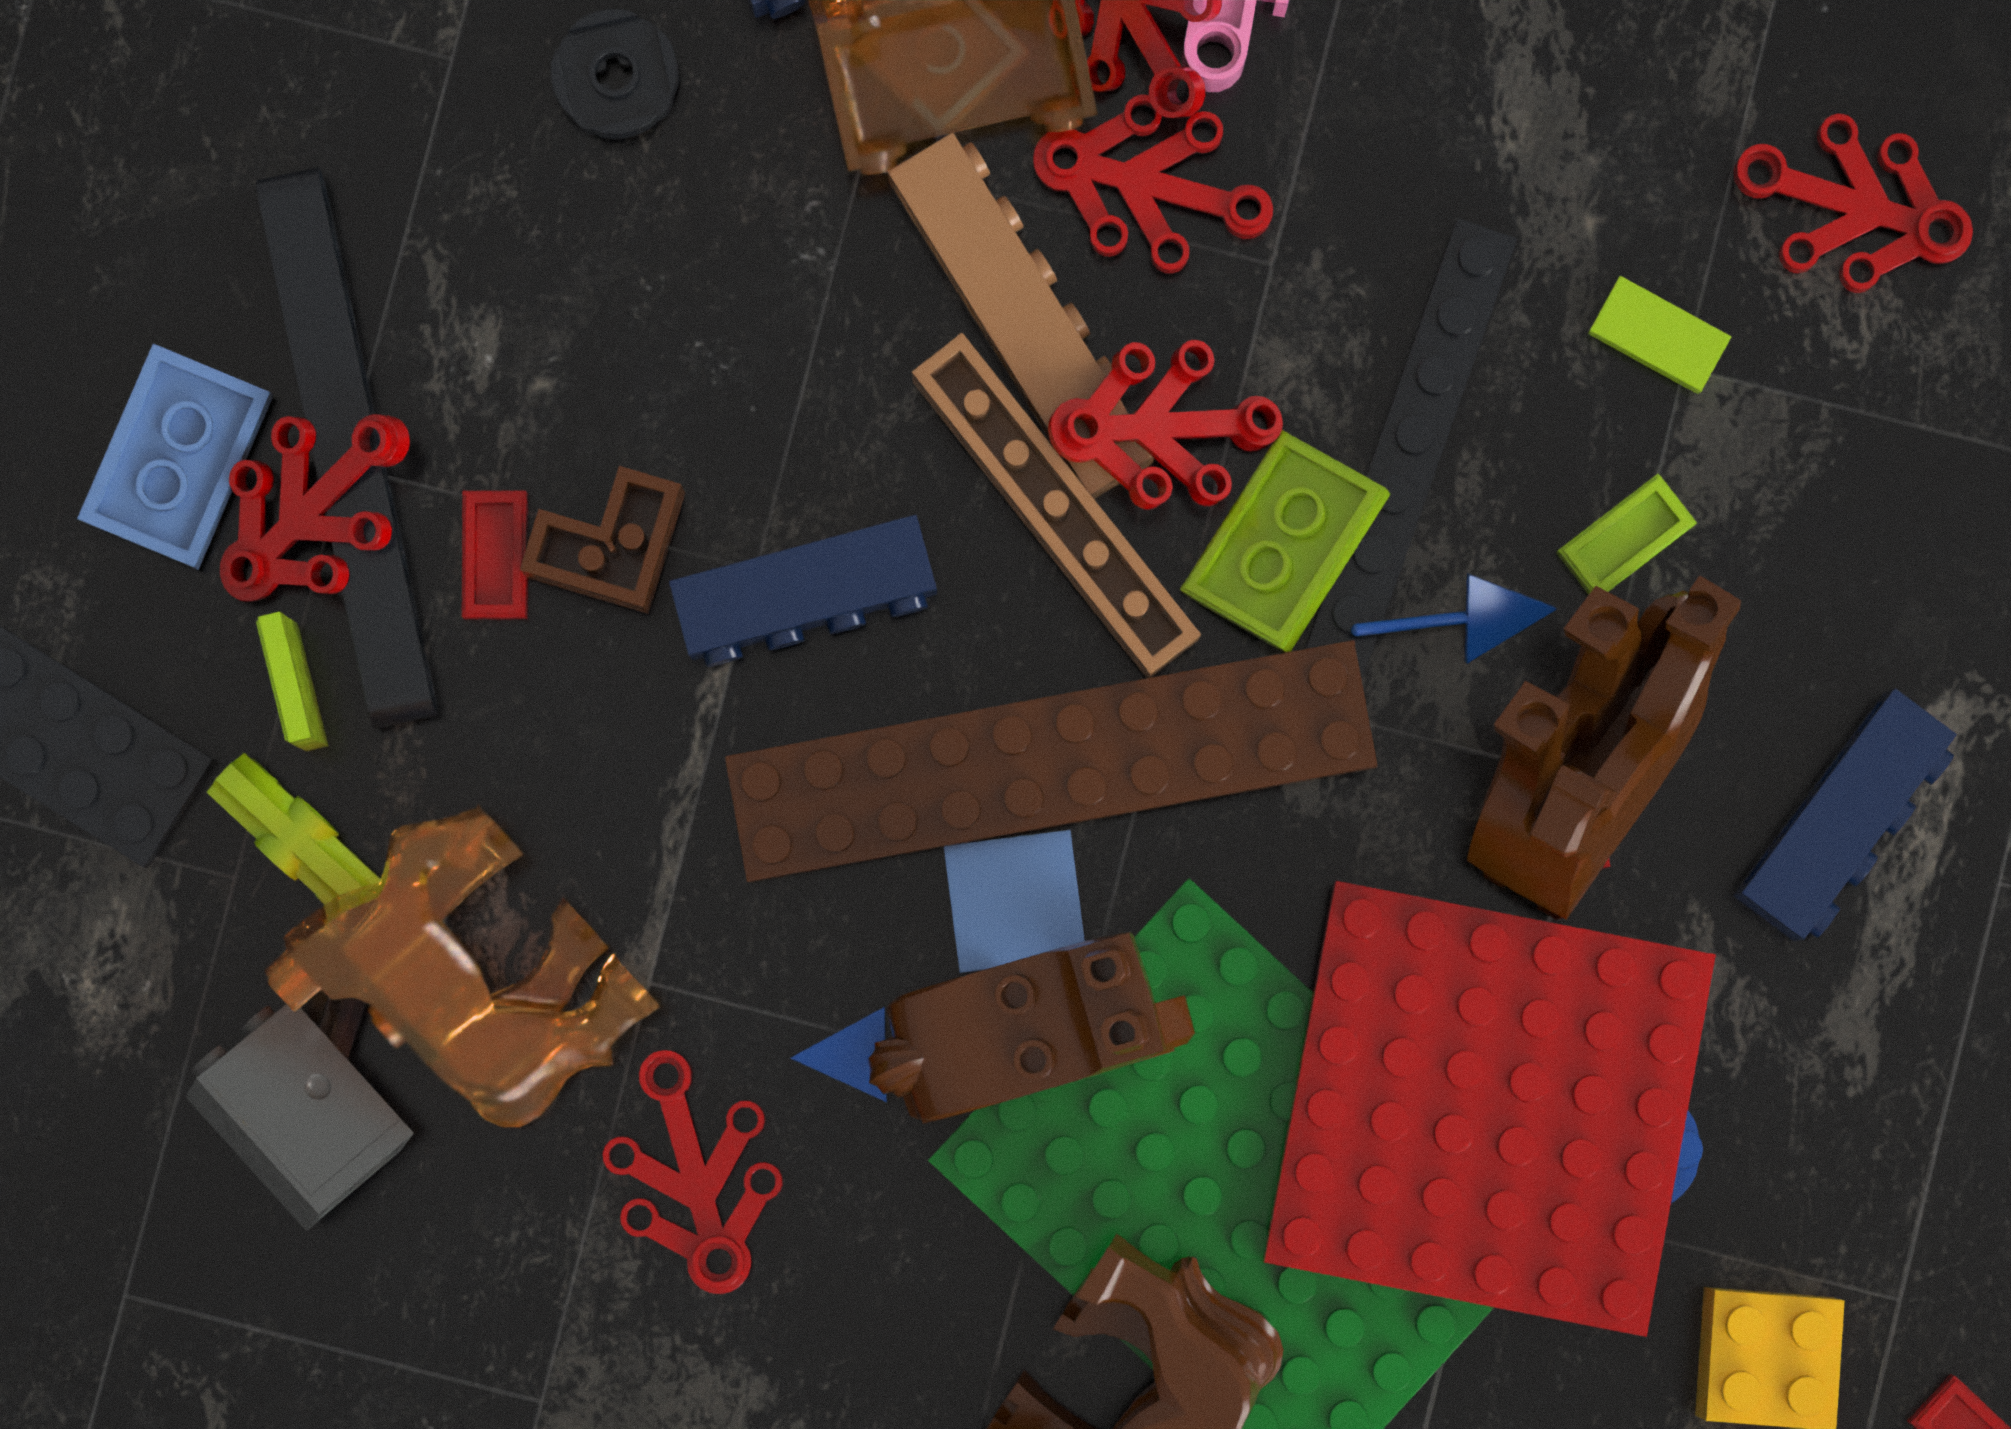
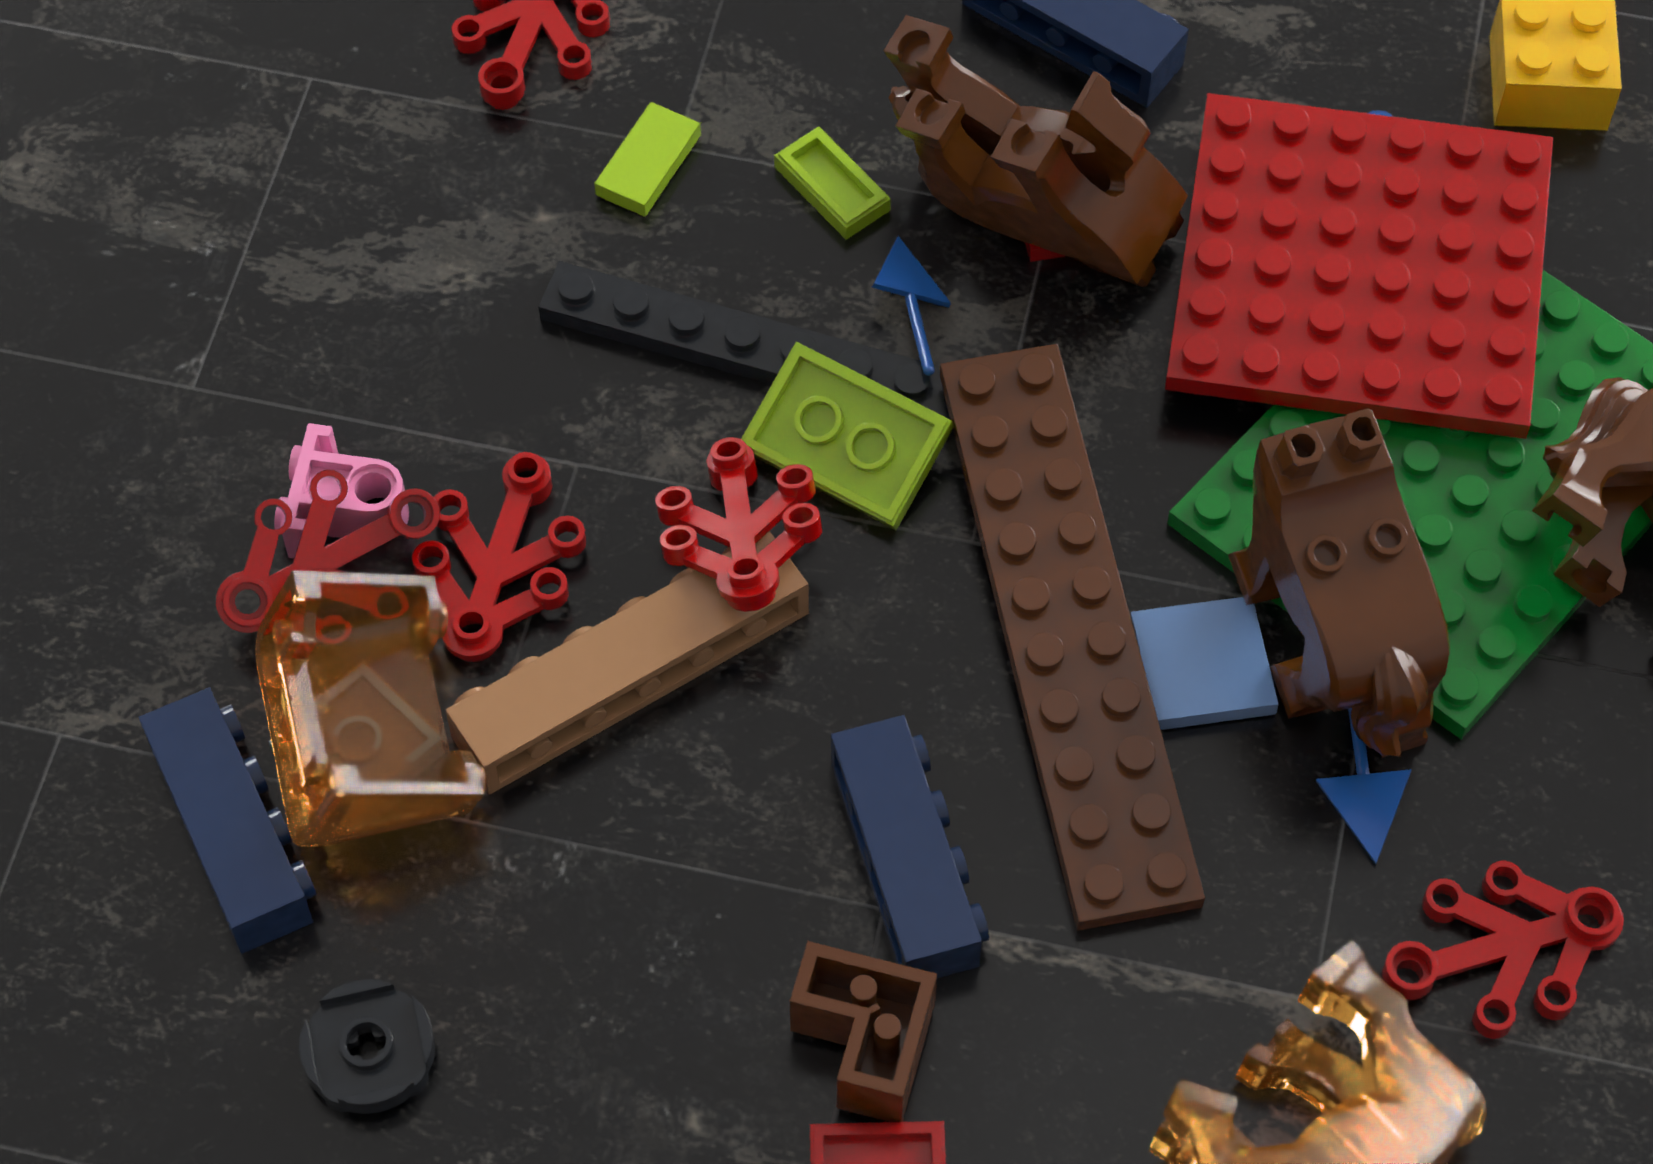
camera: 90 degrees left, 25 degrees down
(1055, 506) = (816, 619): medium nougat brick -> none

